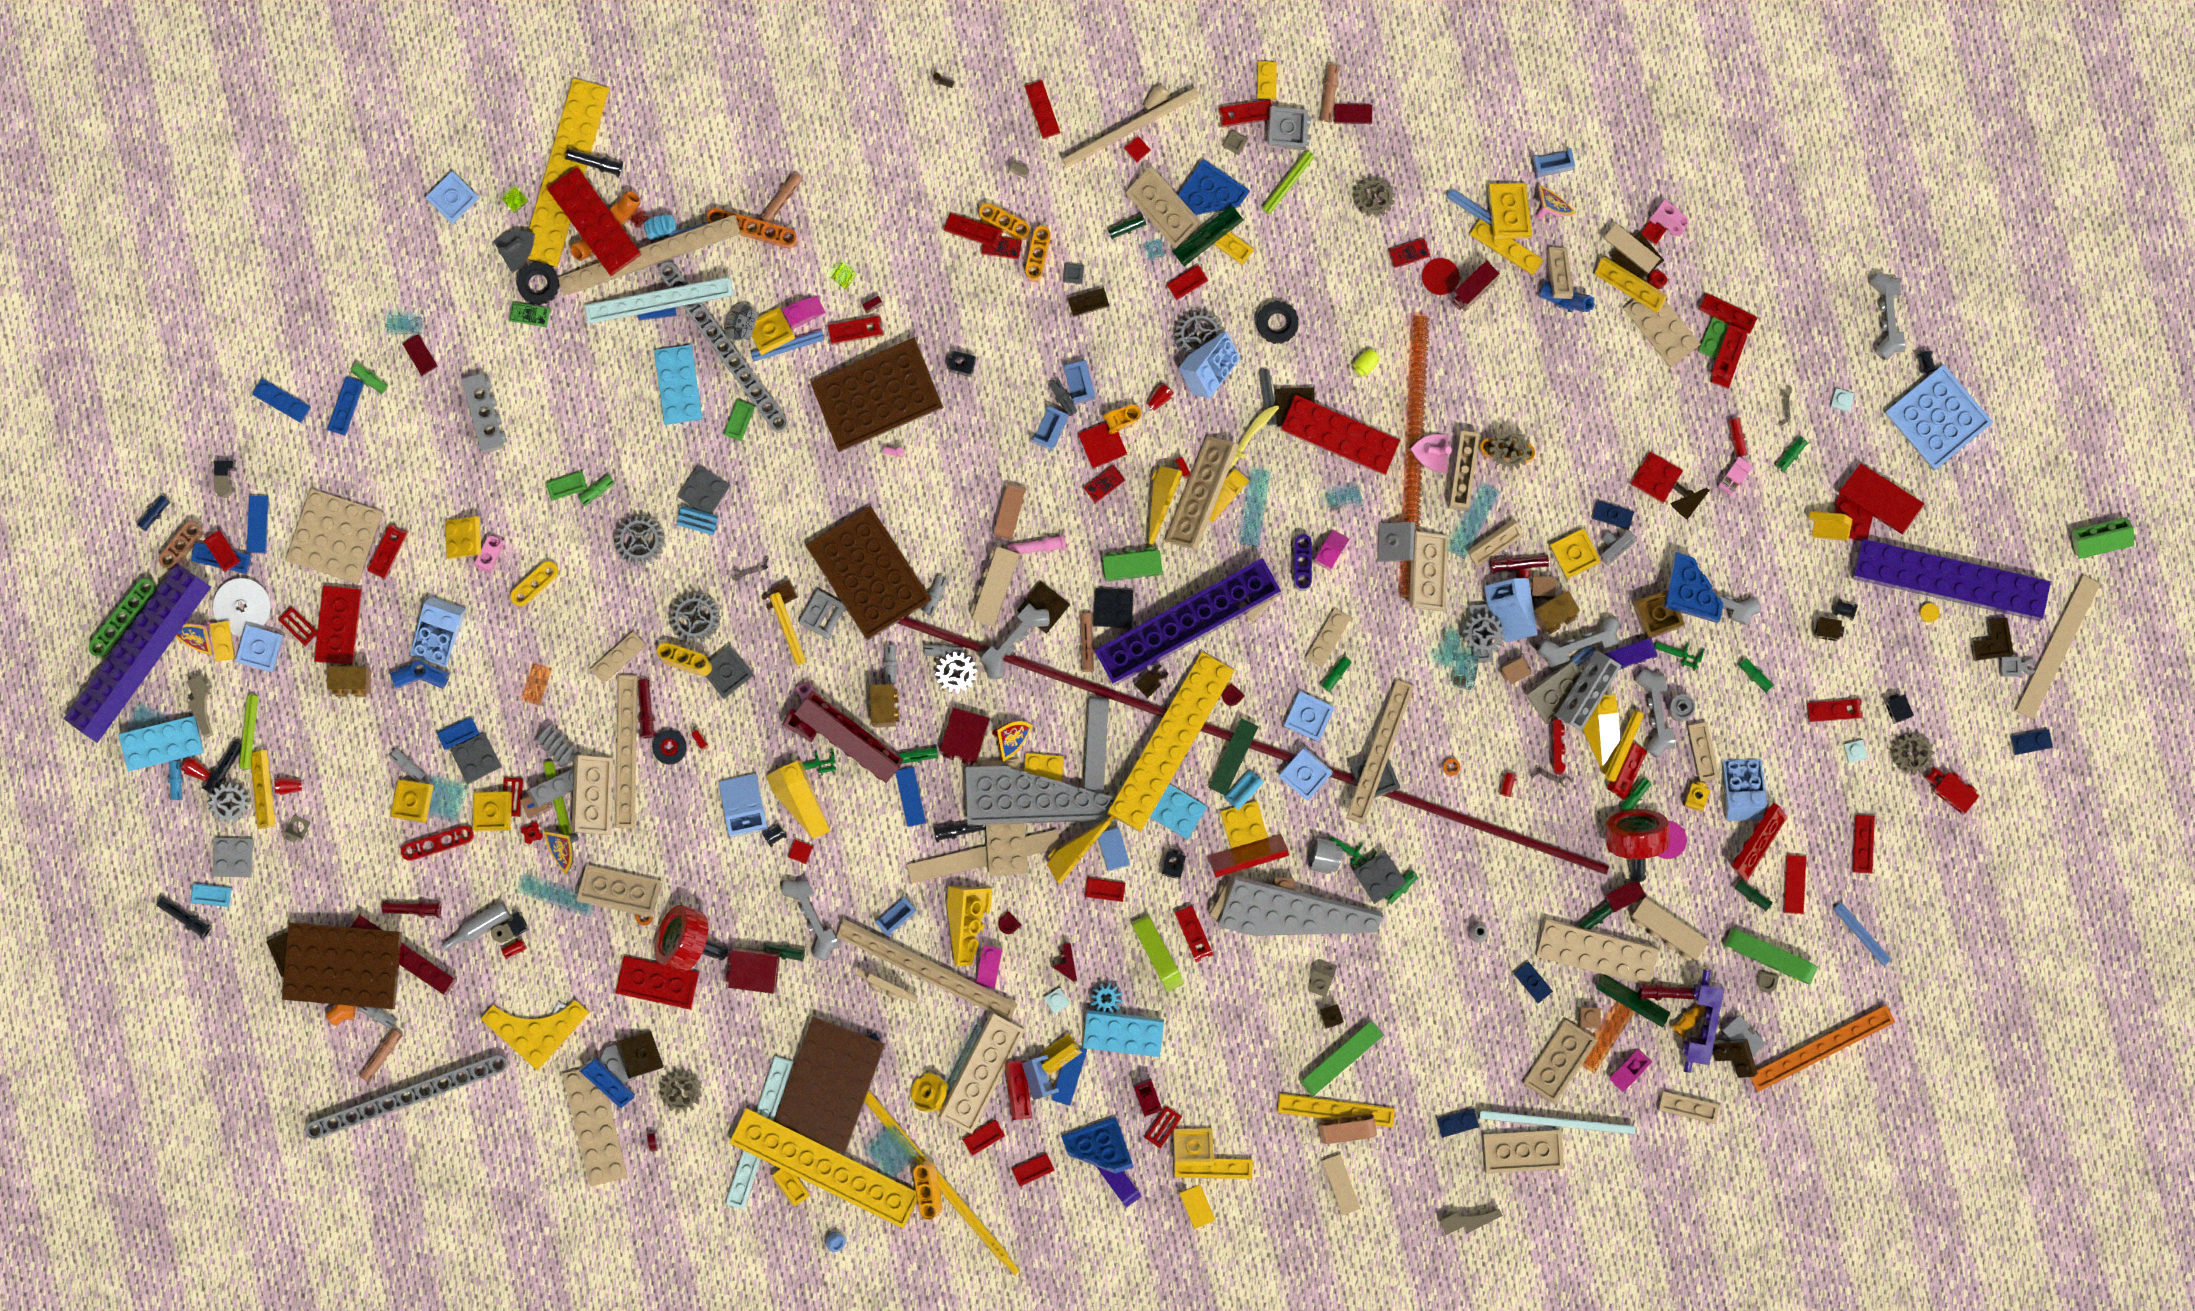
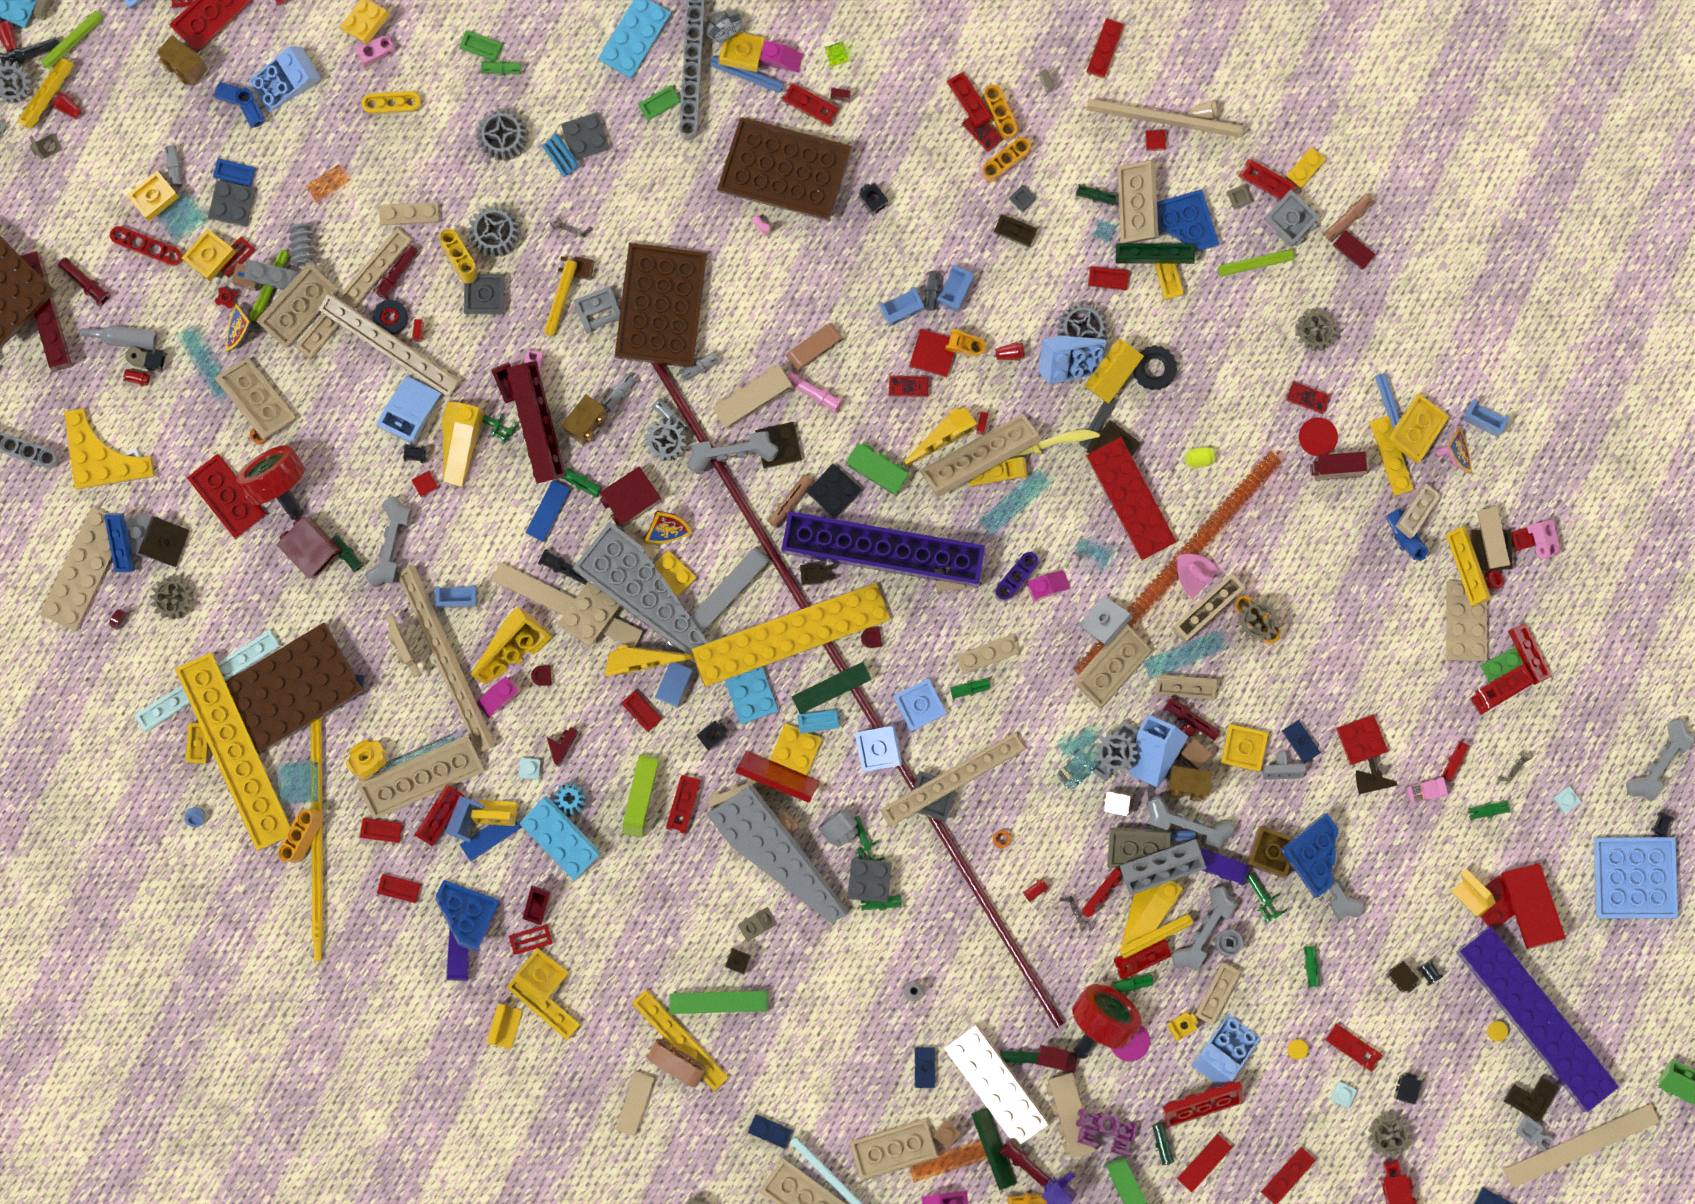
camera: 35 degrees right, 0 degrees up
(686, 768) = (389, 345): none -> tan tile
(1249, 349) = (1113, 370): none -> yellow brick
(1711, 911) = (1118, 1129): none -> magenta piece
(1795, 745) = (1297, 1049): none -> yellow tile

